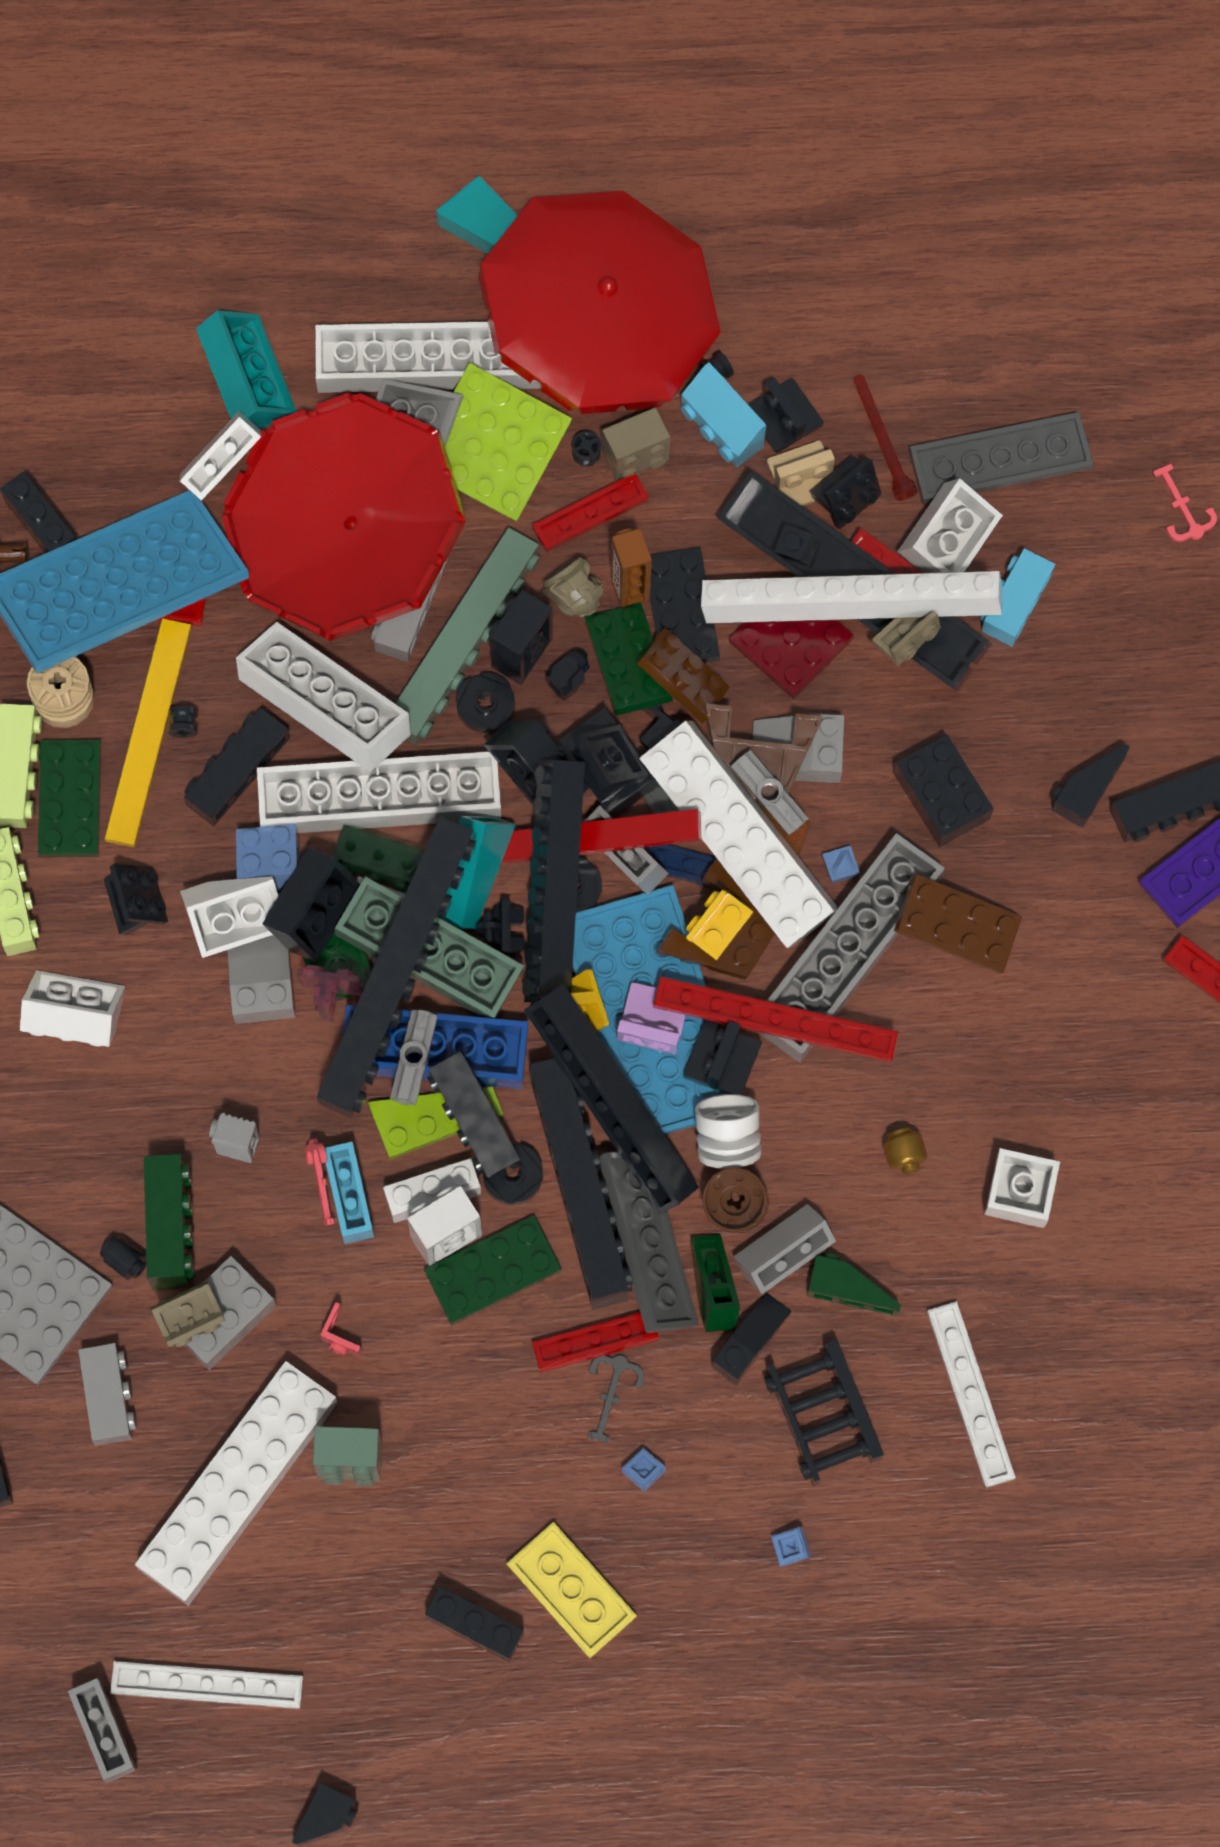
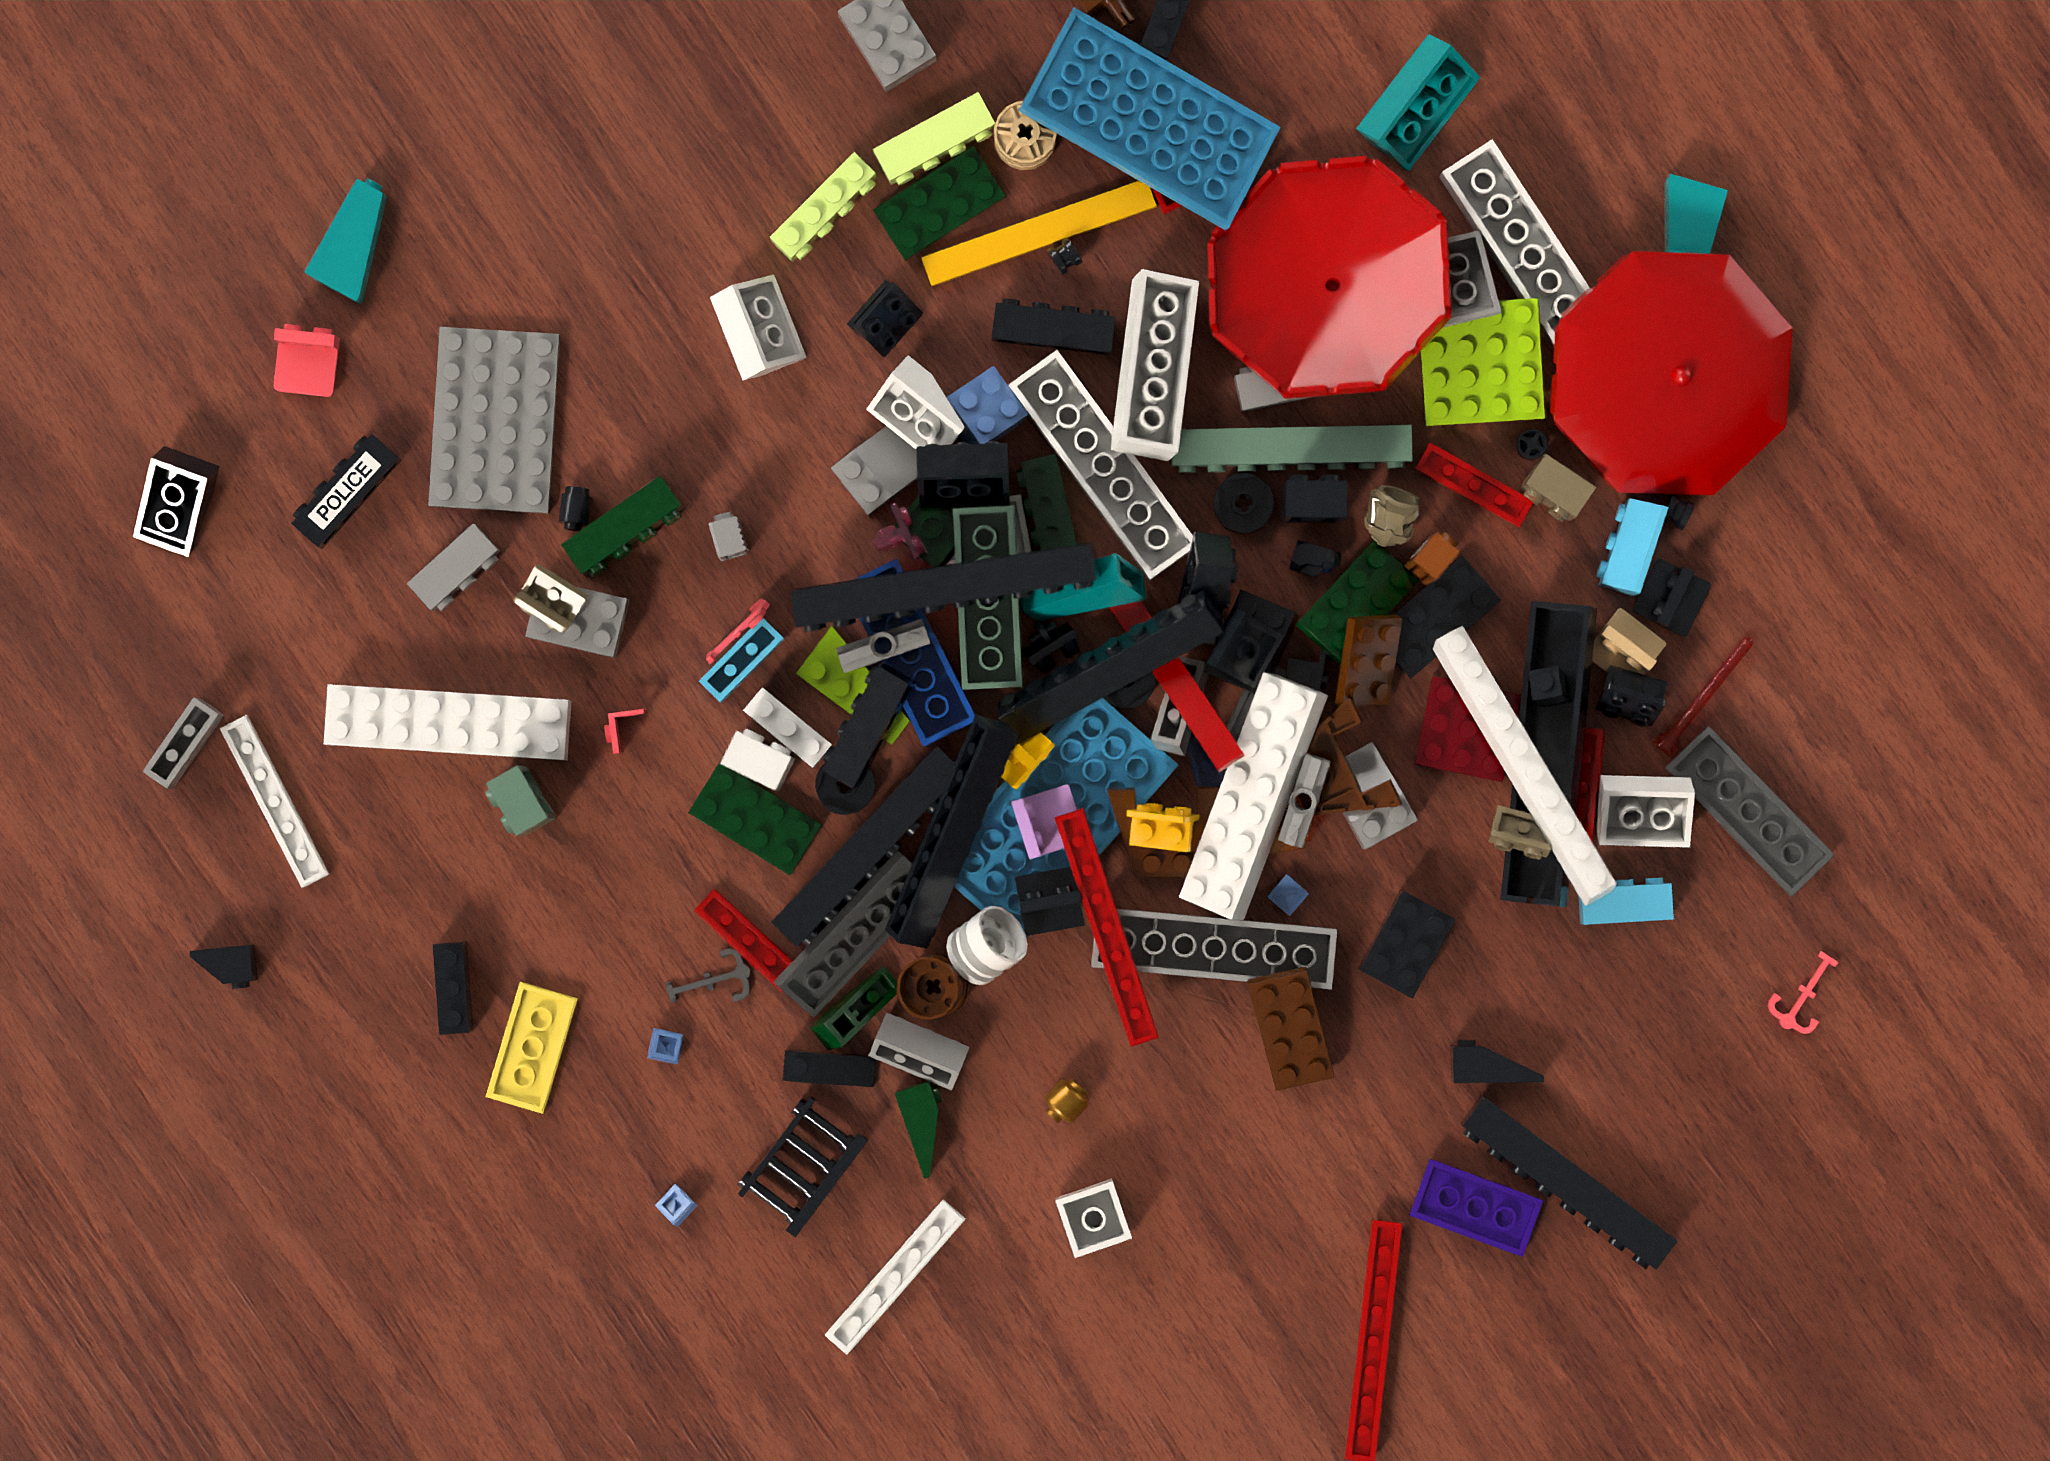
camera: 55 degrees right, 15 degrees up
(220, 455) = (1320, 134): white brick -> none

